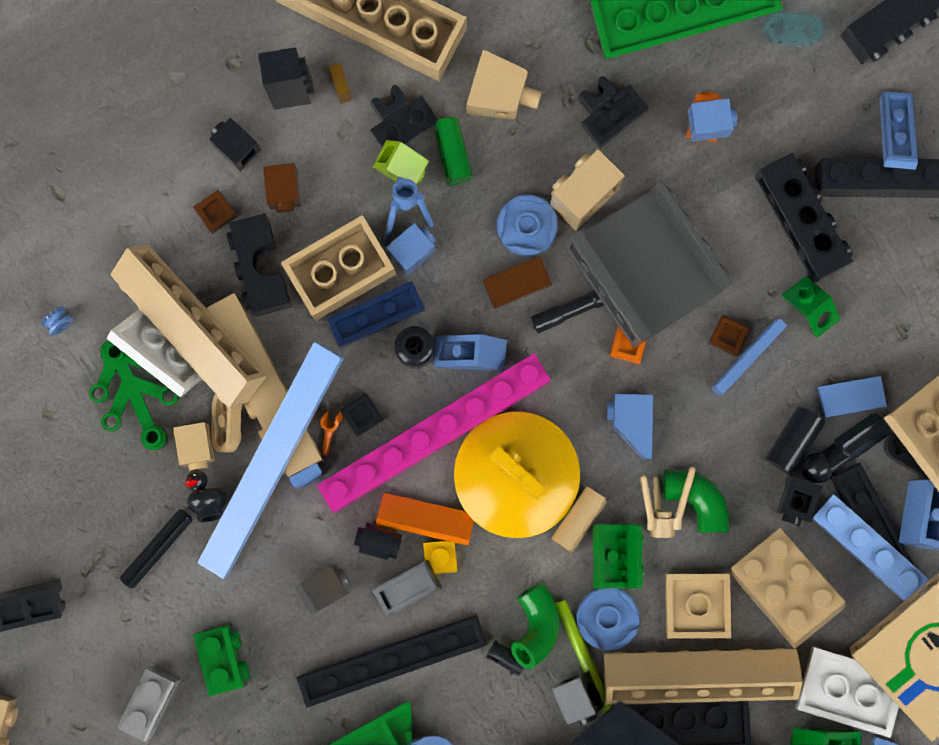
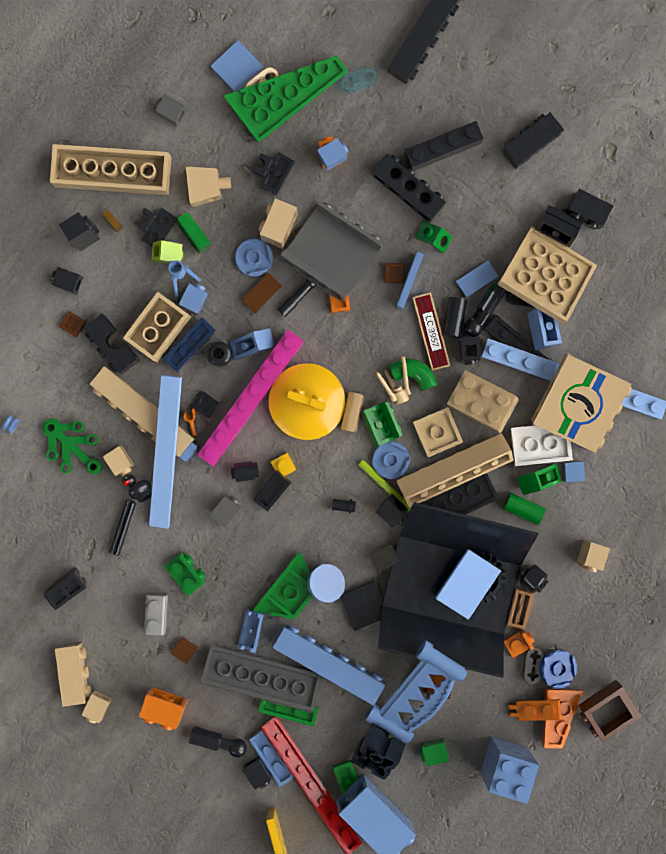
camera: 30 degrees left, 5 degrees up
(153, 351) = (78, 415): white plate -> none
(188, 325) = (85, 395): tan brick -> none
(225, 426) = (131, 440): tan plate -> none
(282, 187) = (105, 294): reddish brown brick -> none
(391, 661) = (280, 534): black tile -> none
(425, 519) = (265, 448): orange tile -> none
(542, 626) = (356, 481): green cylinder -> none
(633, 421) = (359, 344): medium blue slope -> none
(750, 447) = (431, 331): none -> tile
(898, 130) = (442, 115): medium blue tile -> none

